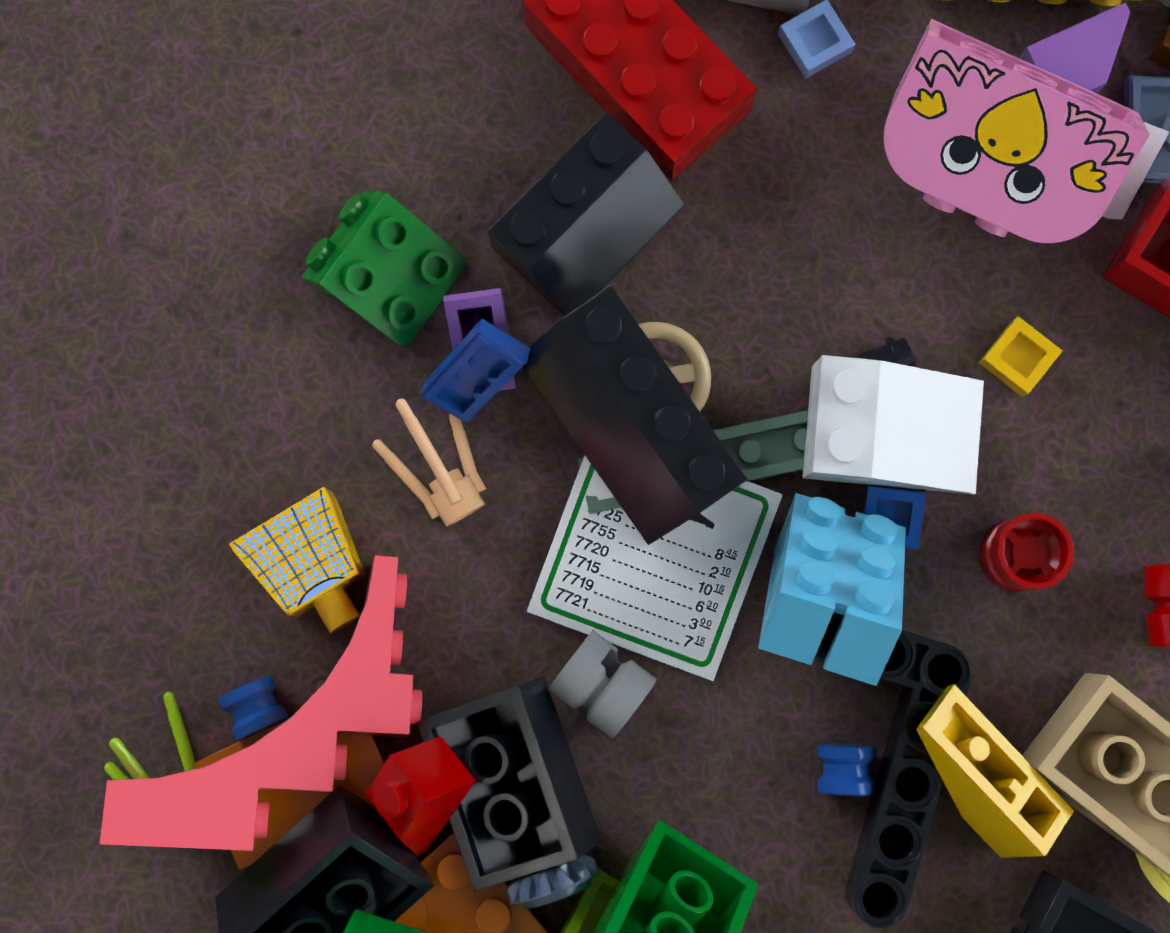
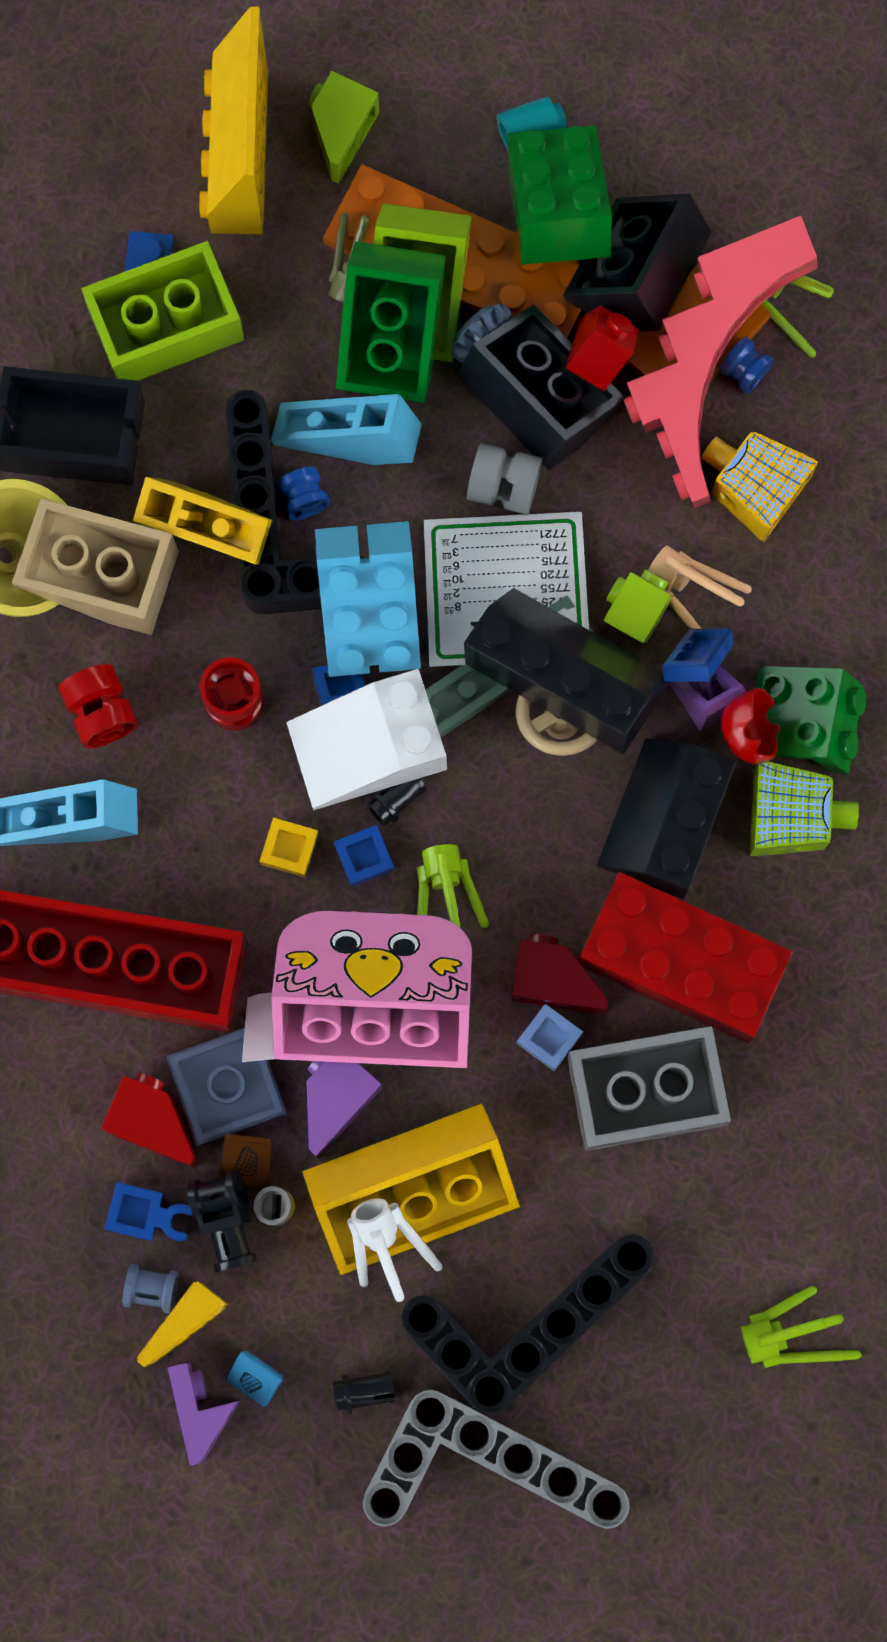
camera: 155 degrees right, 5 degrees down
(445, 164) = (795, 810): none -> lime torso
(456, 257) = (748, 728): none -> red hair
(514, 464) = (638, 604): none -> lime brick
(760, 827) = (352, 429): none -> medium azure slope
(790, 95) = (554, 977): none -> dark red slope
(858, 264) = (443, 870): none -> lime plant
(940, 313) = (364, 856): none -> blue plate

